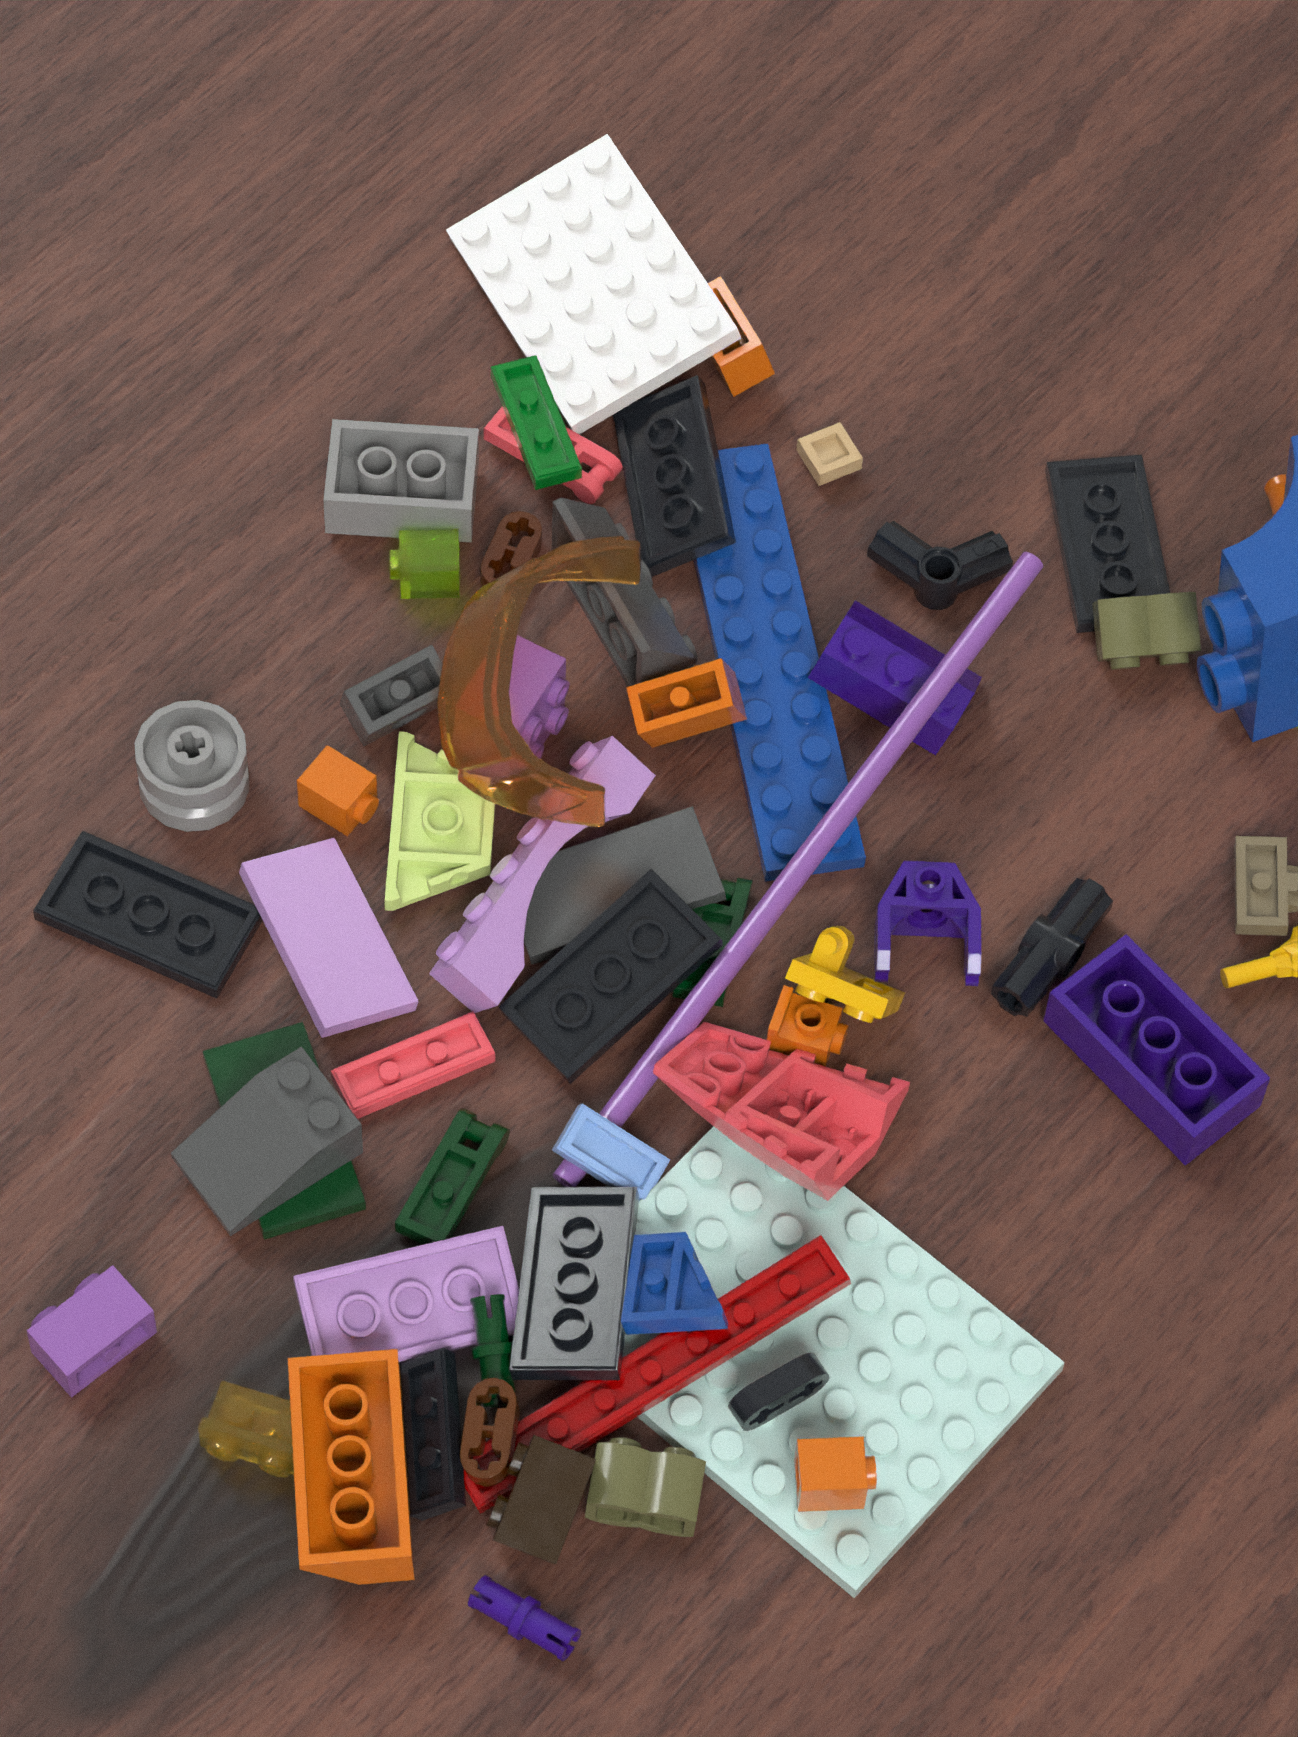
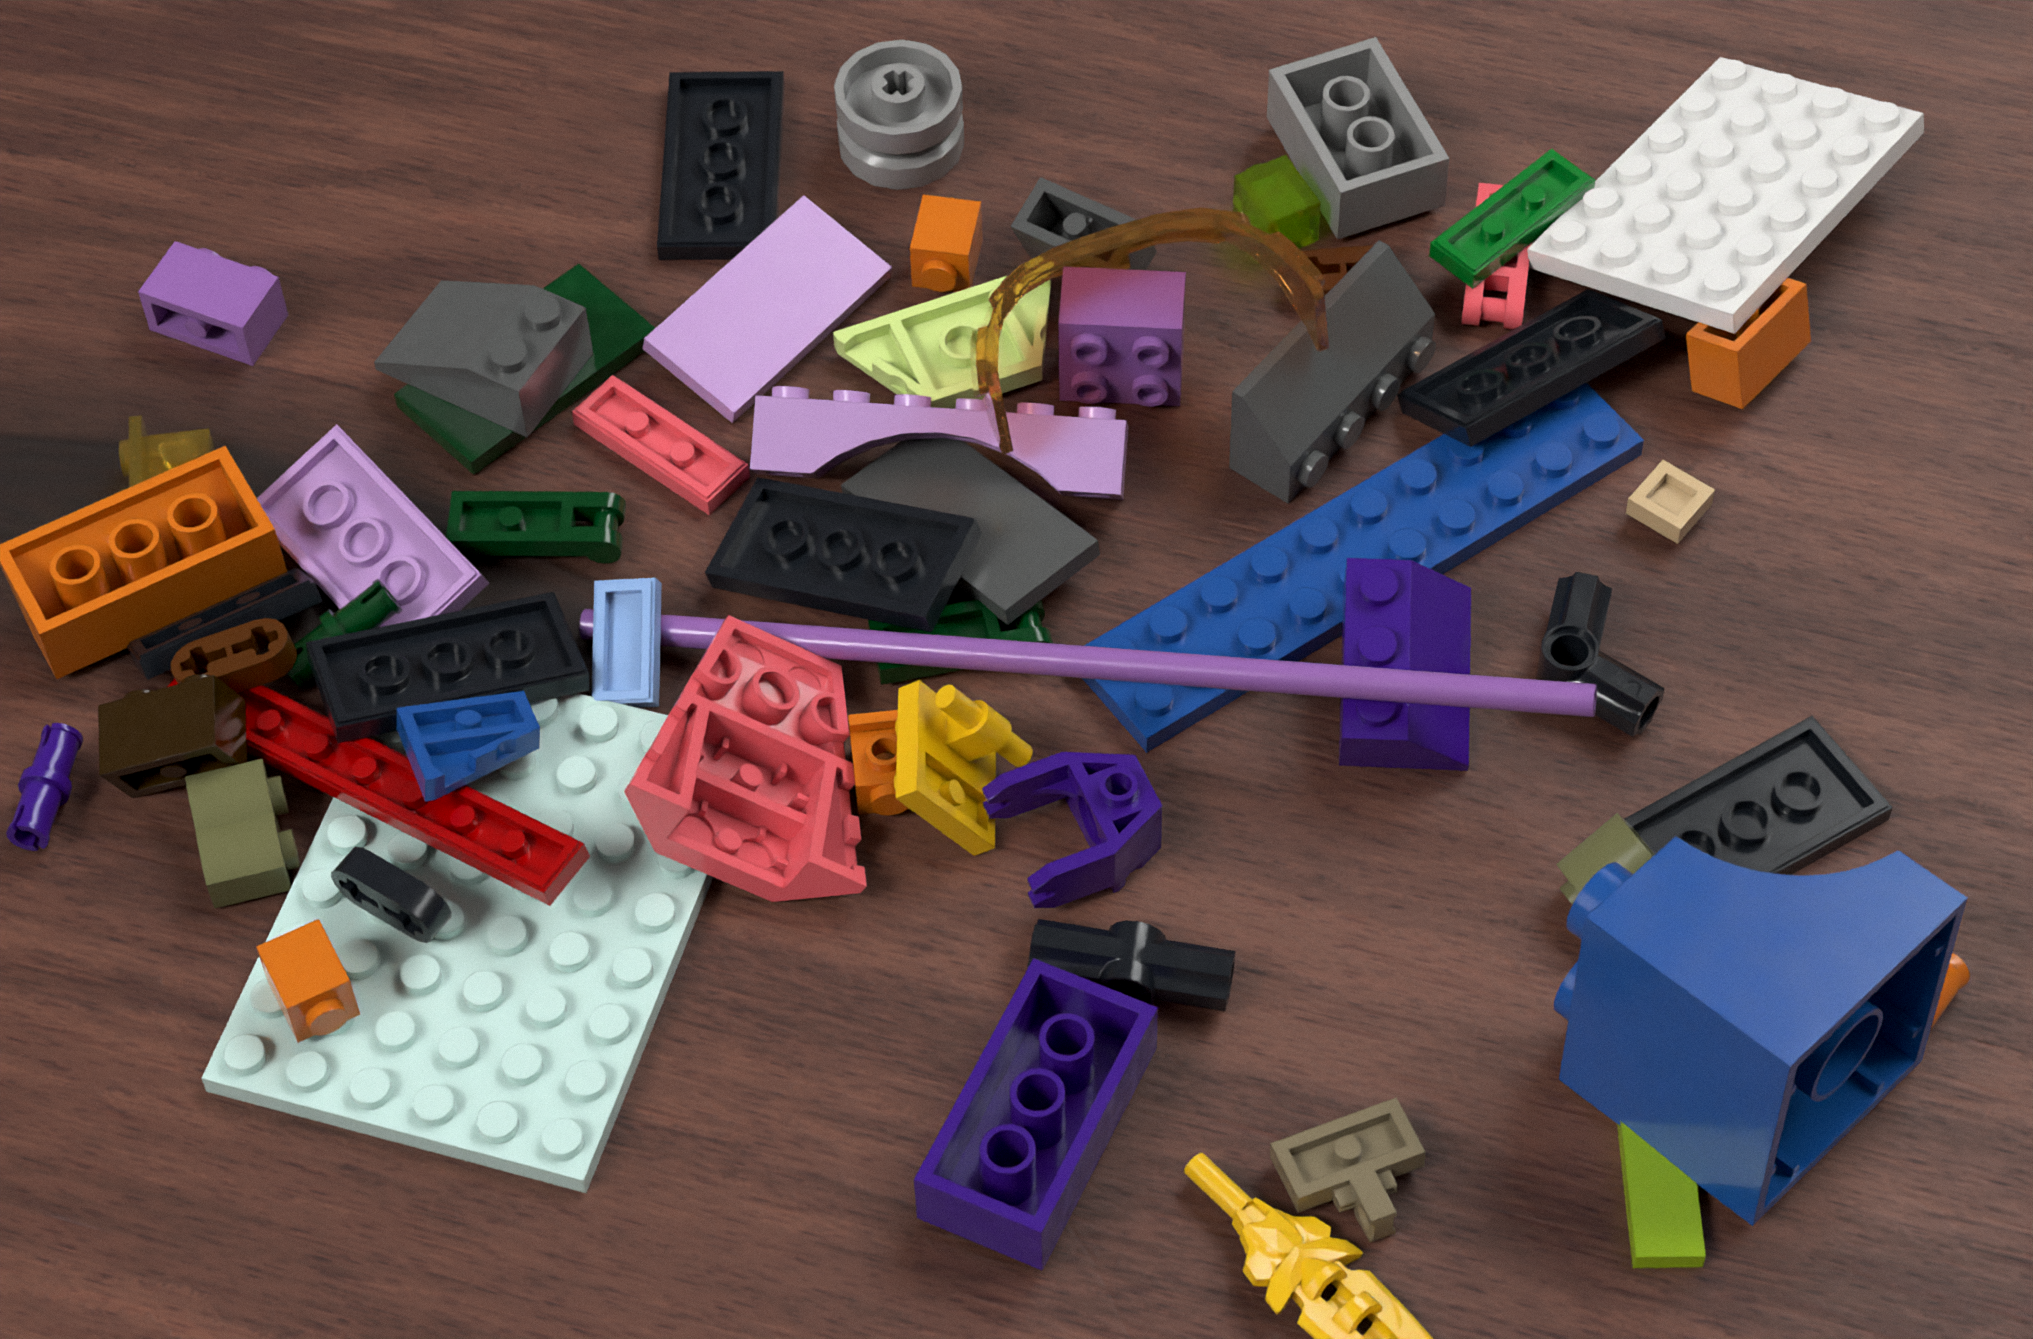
camera: 70 degrees right, 5 degrees down
(686, 703) = (1227, 482): orange brick -> none

